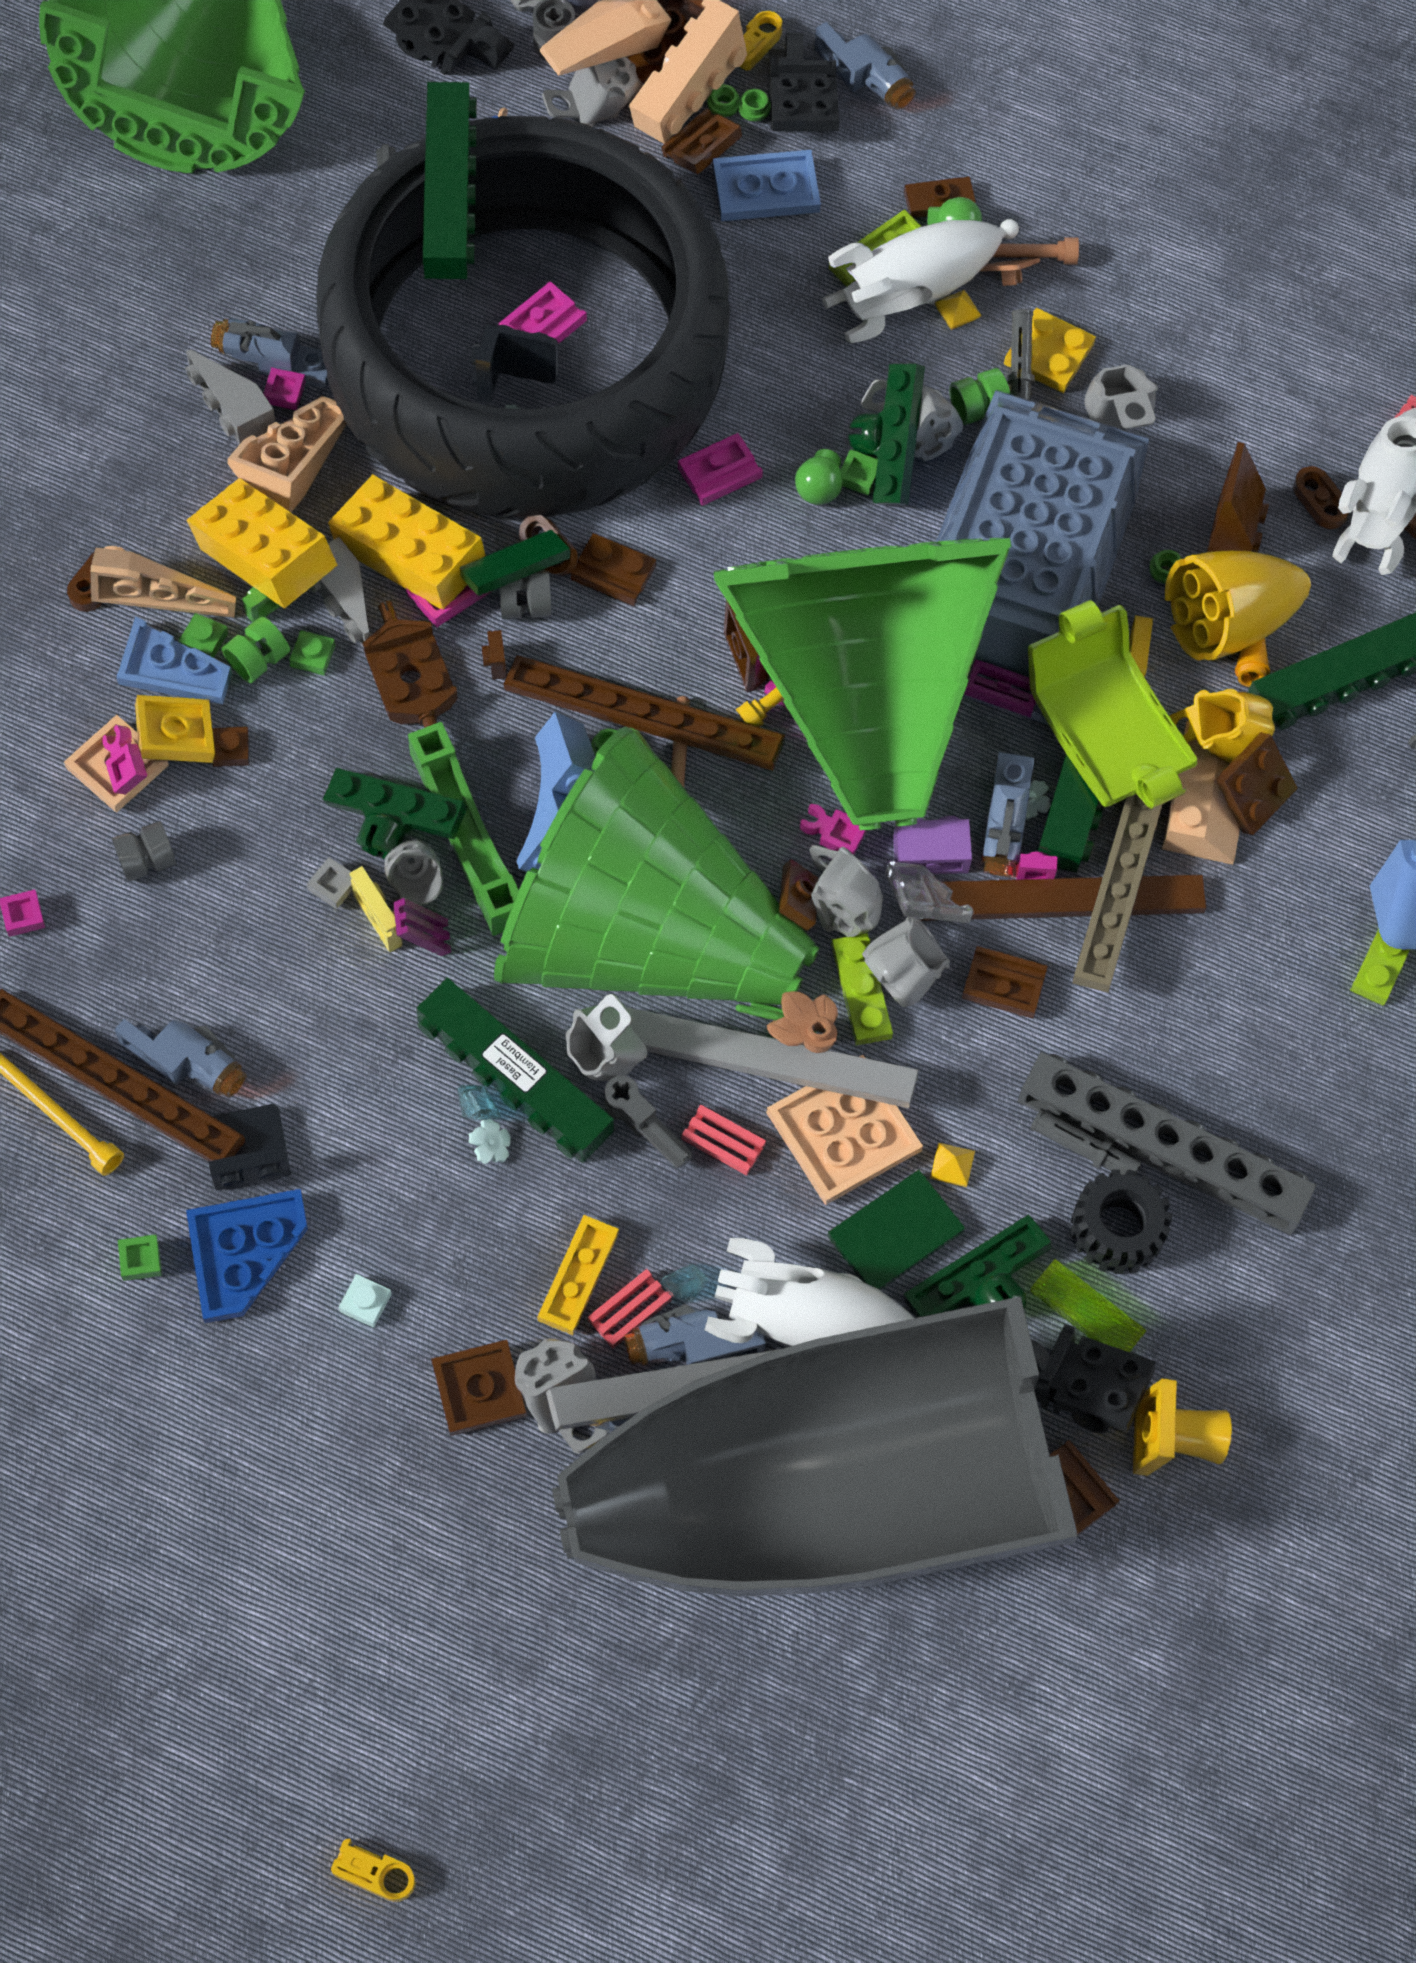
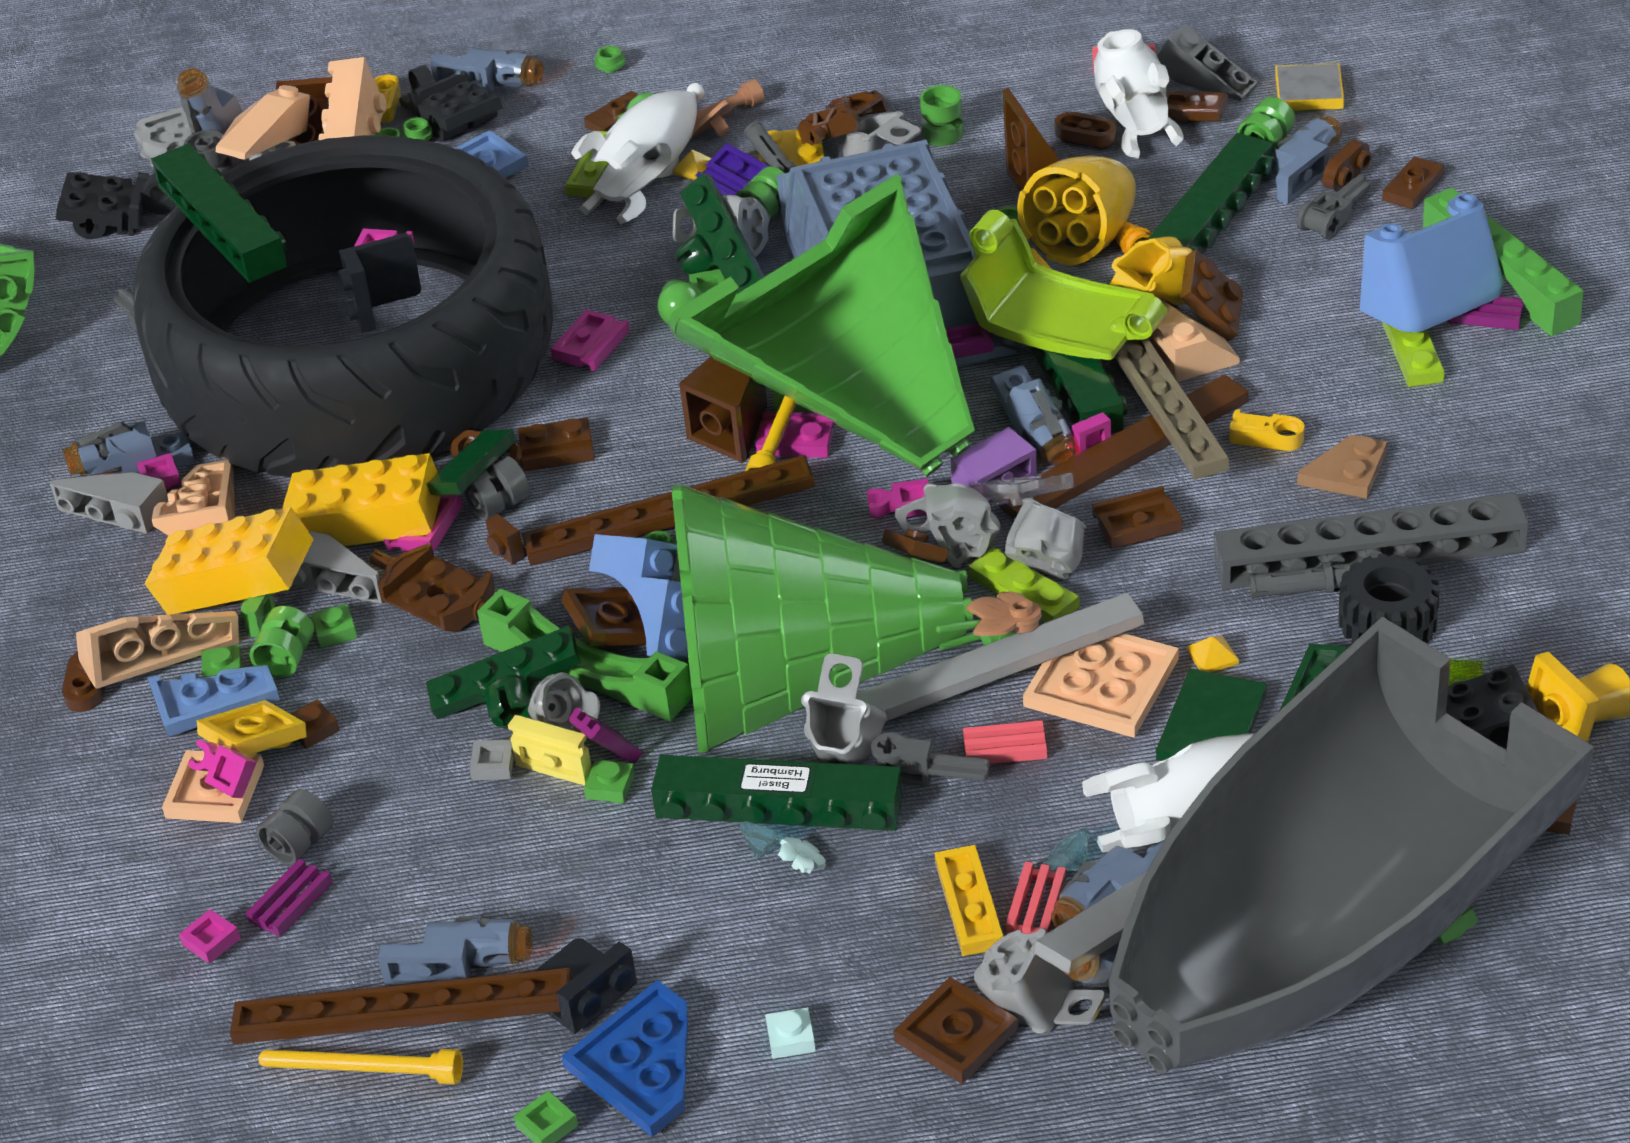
camera: 25 degrees left, 25 degrees down
(100, 900) = (284, 895): none -> magenta tile
(406, 964) = (609, 781): none -> bright green plate
(508, 797) = (605, 616): none -> reddish brown plate
(979, 345) = (732, 169): none -> dark purple plate
(982, 114) = (609, 59): none -> bright green plate
(1109, 345) = (840, 116): none -> reddish brown plate
(1183, 958) = (1265, 430): none -> yellow piece
(1205, 398) = (941, 115): none -> bright green wheel
(1221, 1045) = (1346, 467): none -> medium nougat wing

